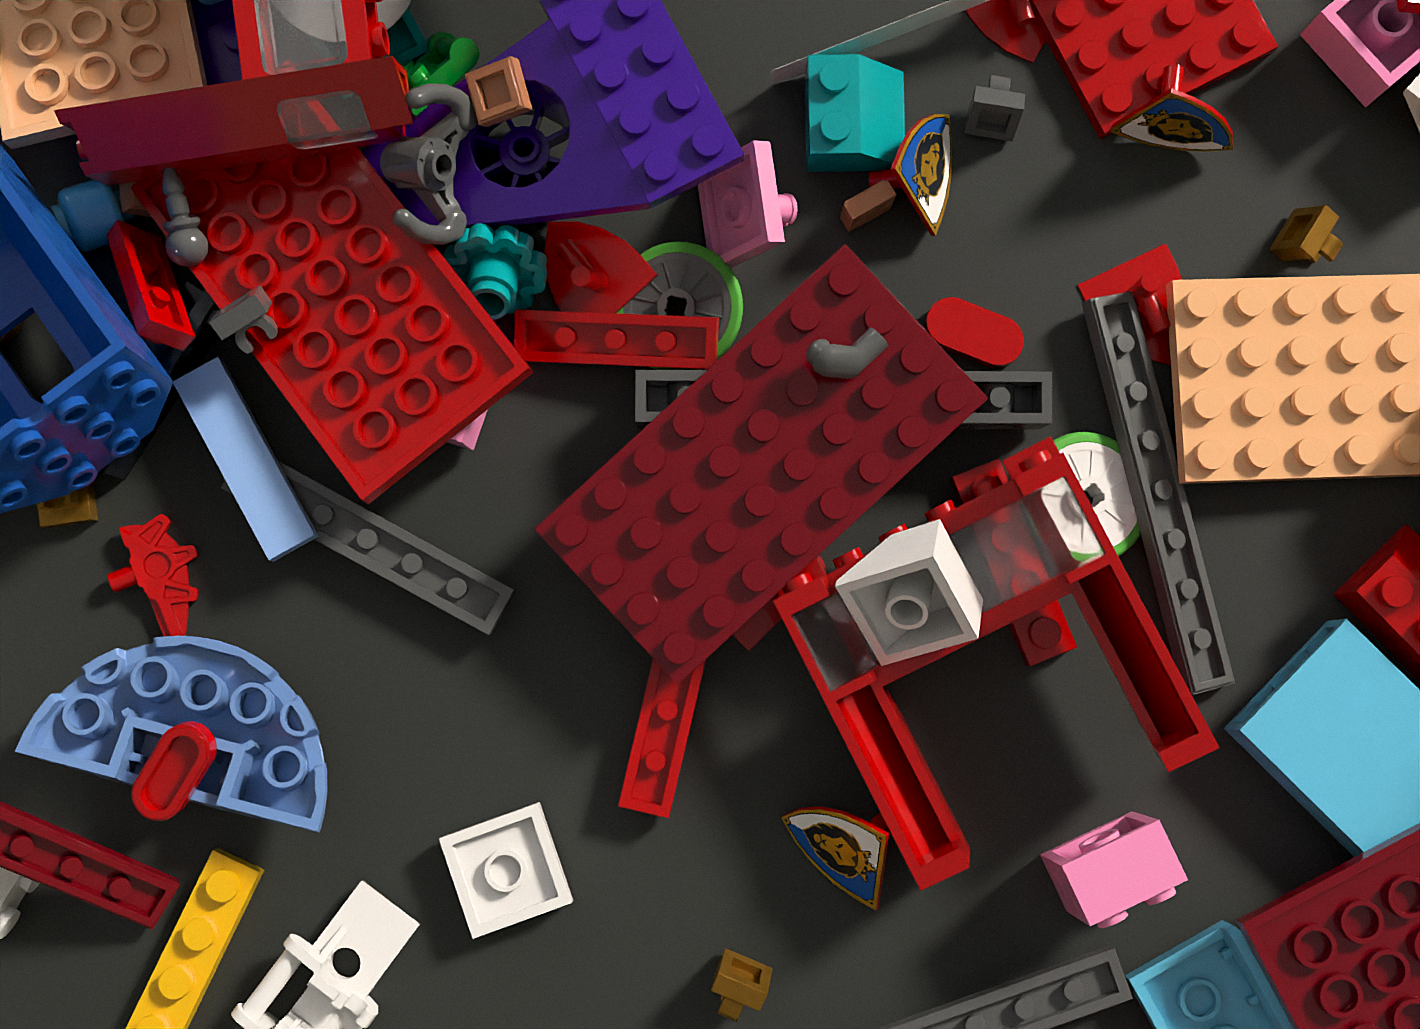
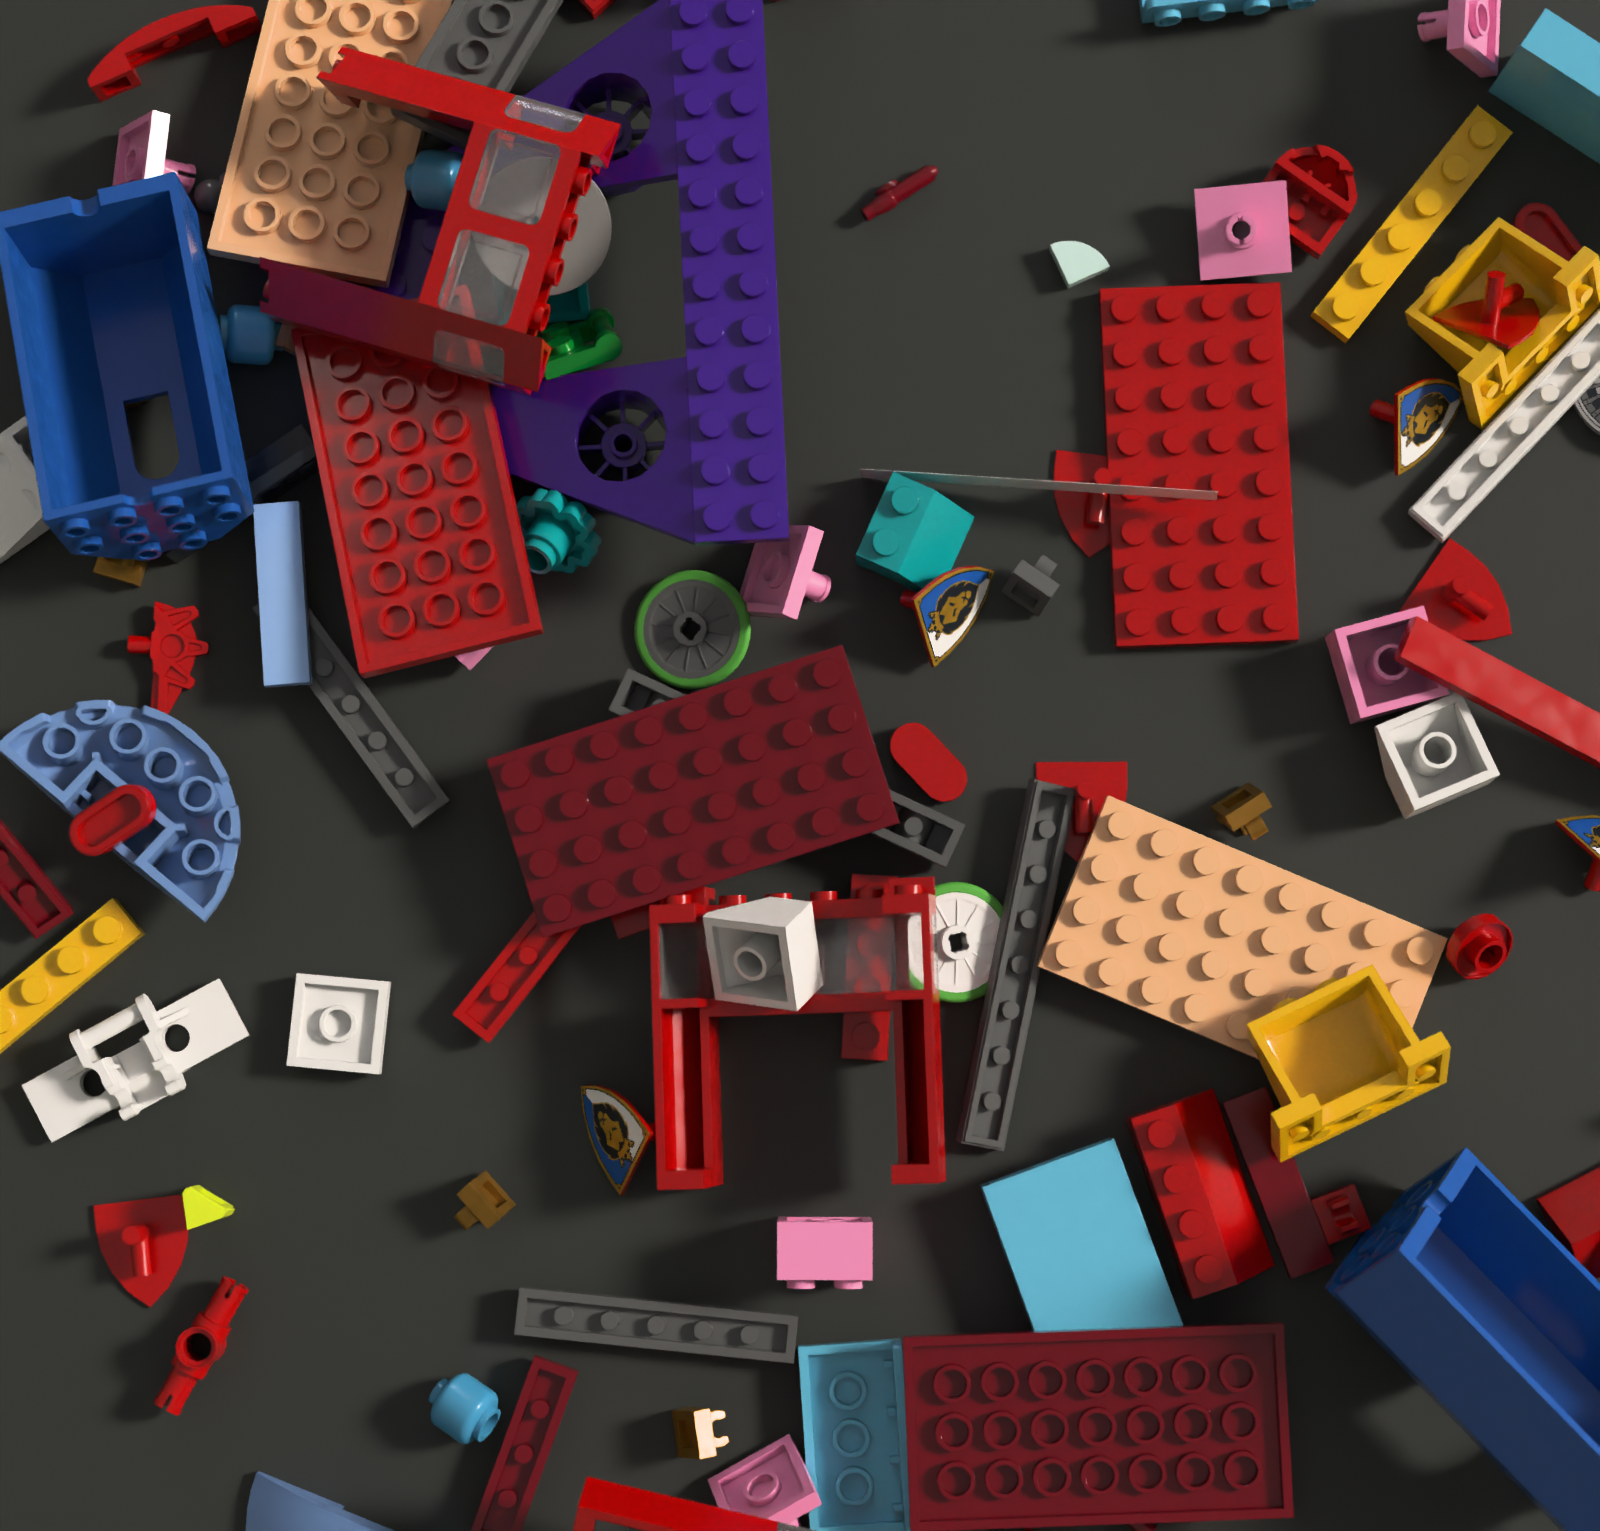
camera: 30 degrees right, 0 degrees up
(150, 286) = (270, 418): red plate -> none
(185, 242) = (315, 399): dark grey bar -> none
(242, 314) = (332, 480): dark grey tile -> none
(429, 165) = (537, 428): dark grey piece -> none
(498, 91) = (619, 395): nougat tile -> none
(592, 268) = (635, 570): red shield -> none
(616, 338) = (628, 633): red plate -> none
(843, 360) = (793, 739): dark grey arm -> none
(867, 205) = (887, 616): nougat tile -> none
(1176, 120) = (1179, 662): shield -> none

